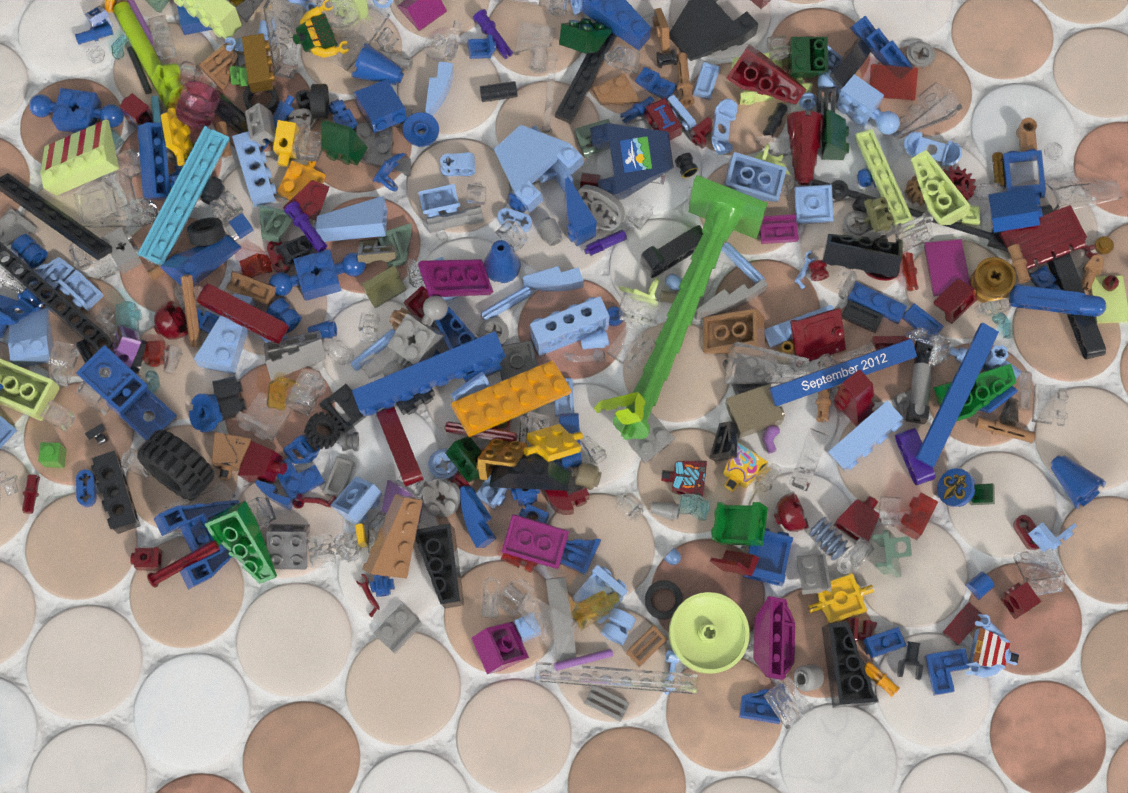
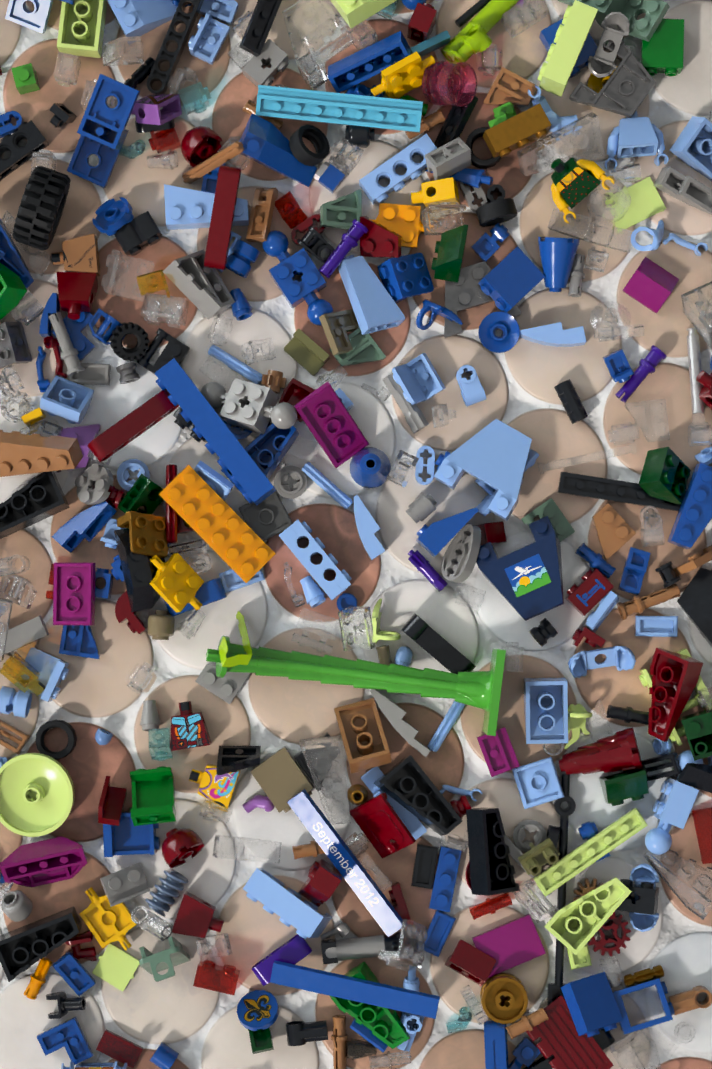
camera: 75 degrees right, 15 degrees up
(315, 485) = (68, 354): none -> light grey pin
(335, 520) = (43, 384): none -> blue piece
(347, 189) = (405, 276): none -> blue bracket
(800, 298) = (418, 794): none -> black wedge
(887, 606) = (116, 967): none -> yellowish green piece
(935, 143) = (648, 898): none -> black brick
(984, 457) = (299, 1032): none -> black piece

